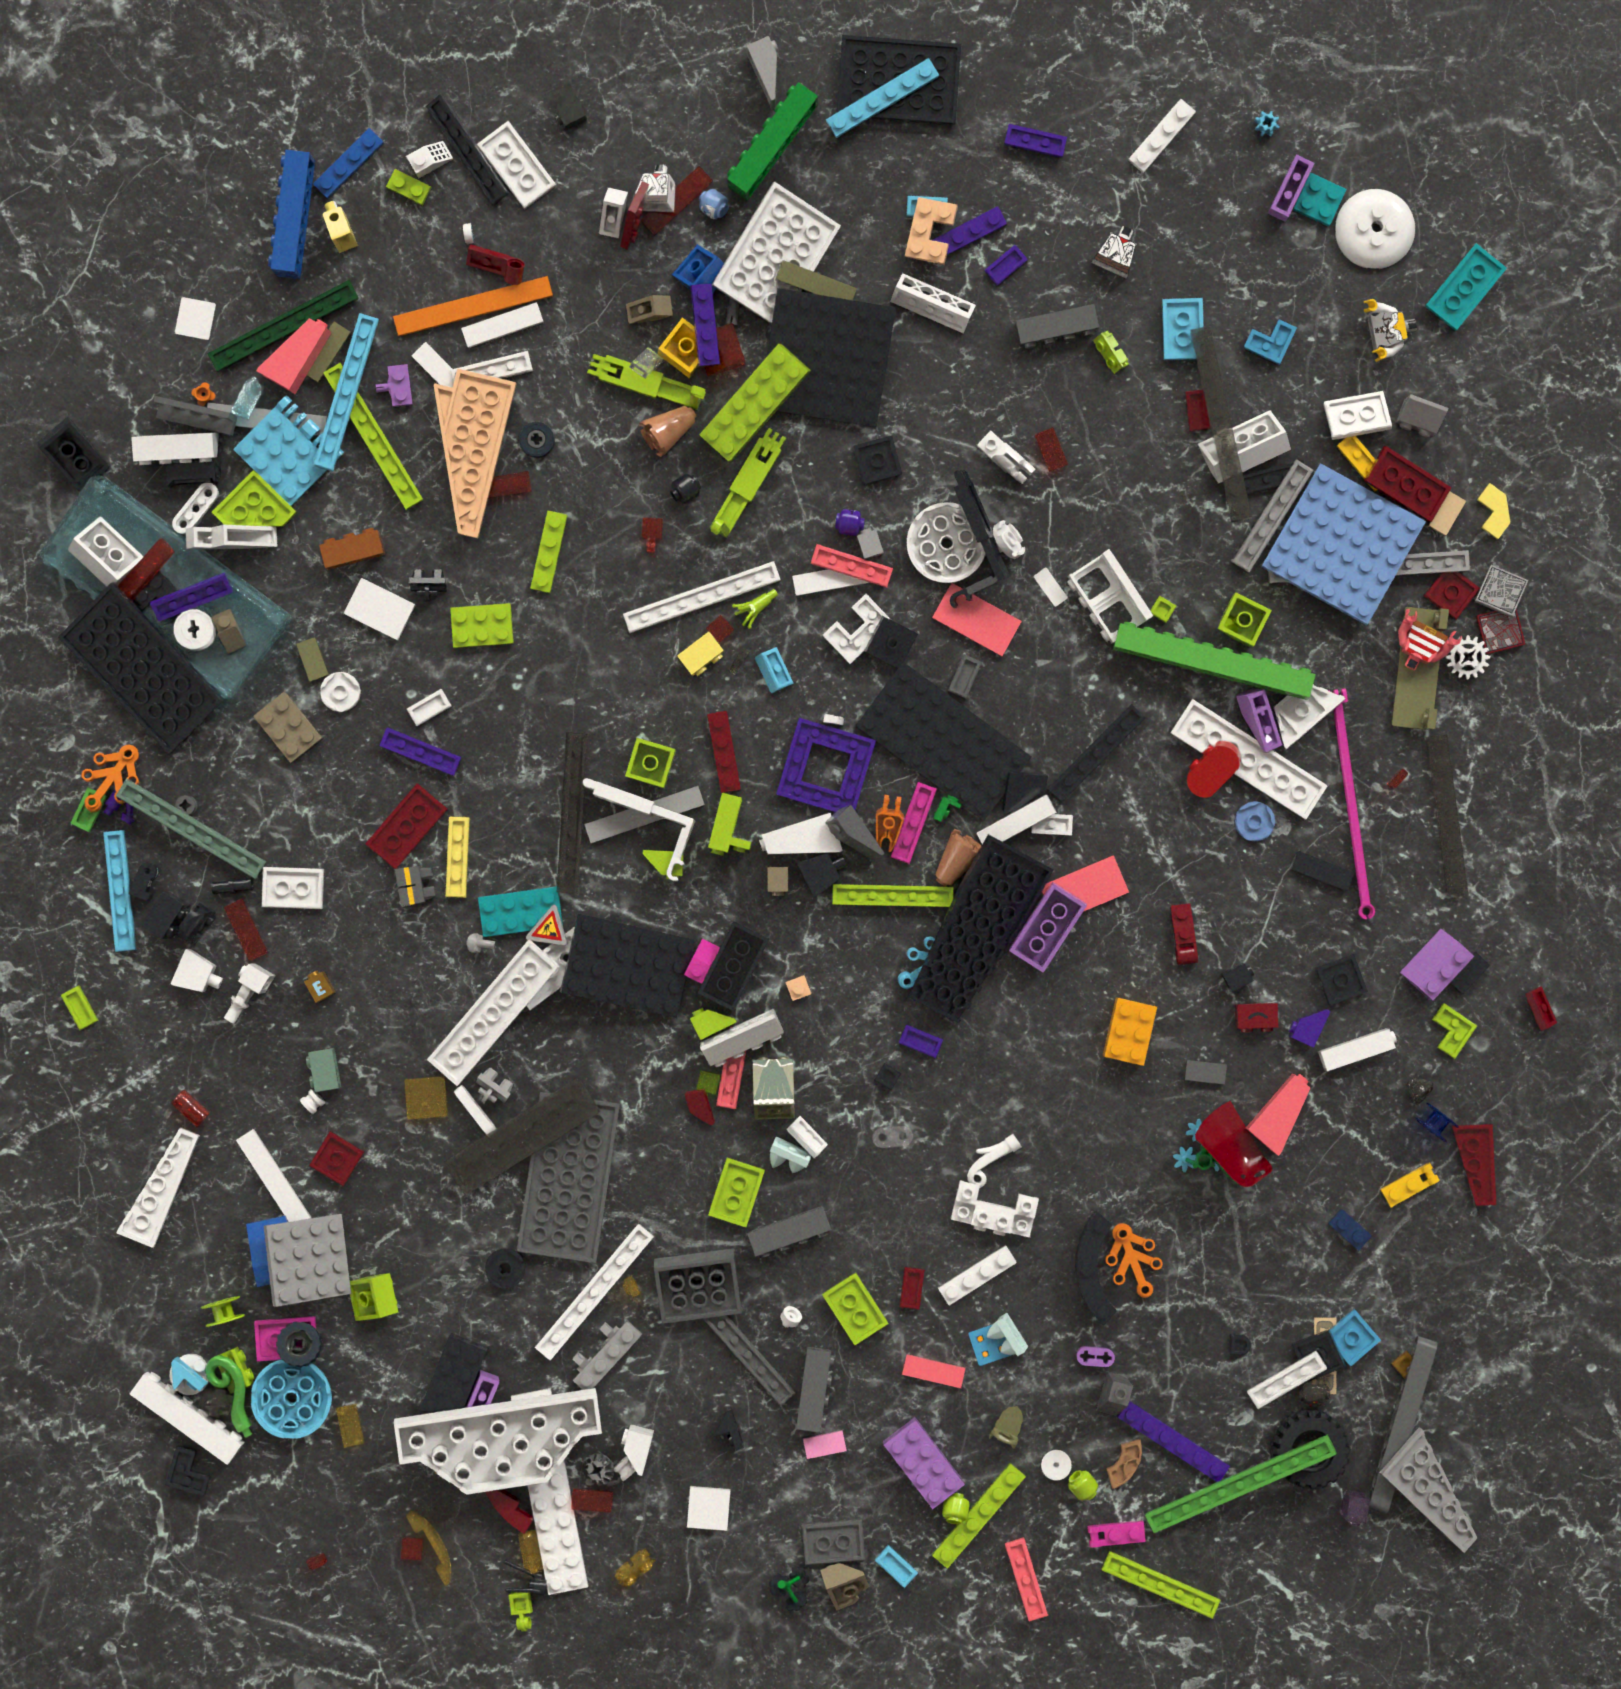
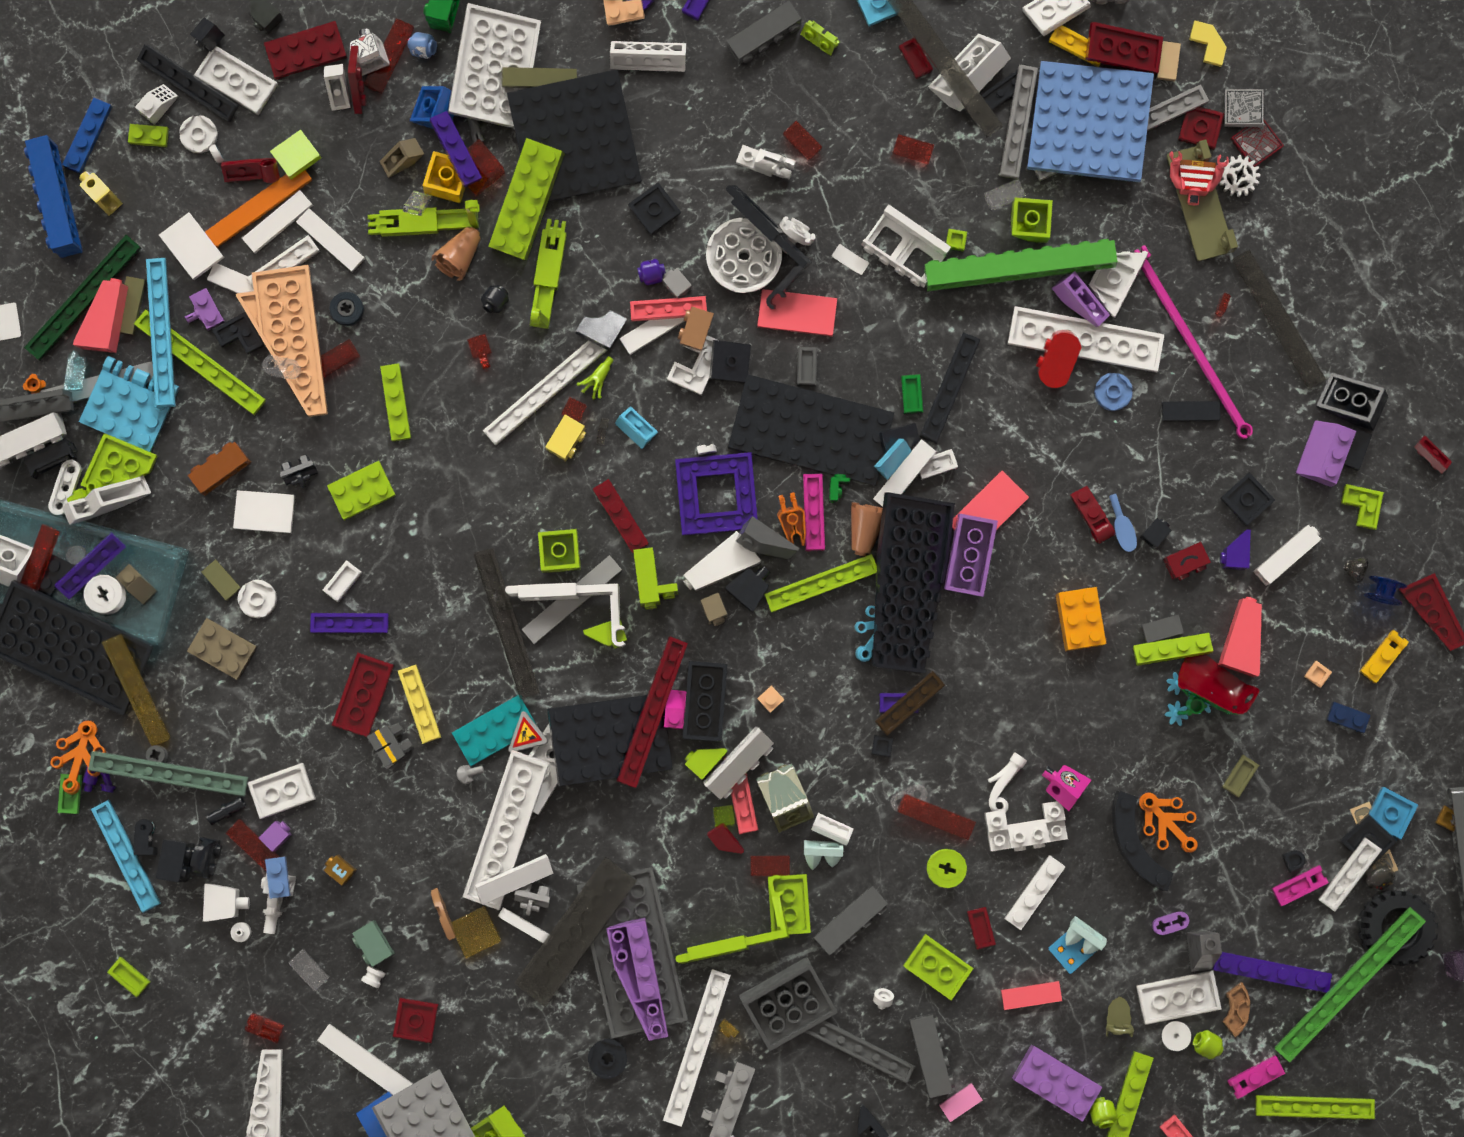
camera: 25 degrees left, 5 degrees down
(182, 579) = (75, 554): none -> clear tile
(190, 735) = (136, 690): none -> clear yellow tile
(207, 521) = (80, 493): none -> lime plate
(207, 1007) = (245, 931): none -> white tile
(253, 1070) = (308, 970): none -> clear plate
(258, 972) = (277, 877): none -> medium blue plate
(271, 929) = (275, 835): none -> medium lavender brick
(401, 1075) = (443, 914): none -> medium nougat tile
(408, 317) = (191, 246): none -> white tile
(424, 417) = (239, 328): none -> black plate
(450, 475) = (281, 366): none -> clear plate
(458, 205) = (198, 134): none -> white tile
(482, 1063) = (513, 879): none -> white tile
(504, 109) = (207, 35): none -> black brick
(546, 265) = (295, 154): none -> tile
(547, 364) = (330, 240): none -> white tile
(565, 1200) = (638, 975): none -> medium lavender wedge
(596, 162) = (305, 50): none -> dark red plate
(678, 956) = (652, 712): none -> dark red plate
(678, 1211) = (741, 942): none -> lime hinge
(733, 1147) = (770, 865): none -> clear red plate
(778, 561) = (602, 330): none -> tile
(870, 598) = (696, 328): none -> medium nougat brick
(890, 1220) = (955, 862): none -> lime piece
(911, 1165) = (936, 816): none -> clear red tile
(930, 1046) = (909, 703): none -> dark brown tile
(1011, 802) = (893, 458): none -> medium azure slope
(1048, 1185) = (1065, 785): none -> dark pink torso
(1056, 745) = (912, 394): none -> green tile
(1073, 1429) = (1178, 997): none -> white tile
(1157, 501) = (913, 149): none -> clear red plate
(1207, 1095) = (1172, 649): none -> lime plate
(1208, 958) = (1123, 527): none -> medium blue piece
(1221, 1243) = (1240, 776): none -> olive tile
(1228, 583) = (1004, 195): none -> clear plate
(1234, 1371) = (1299, 886): none -> dark pink plate
(1338, 1176) = (1318, 674): none -> light nougat tile
(1485, 924) = (1353, 400): none -> black slope

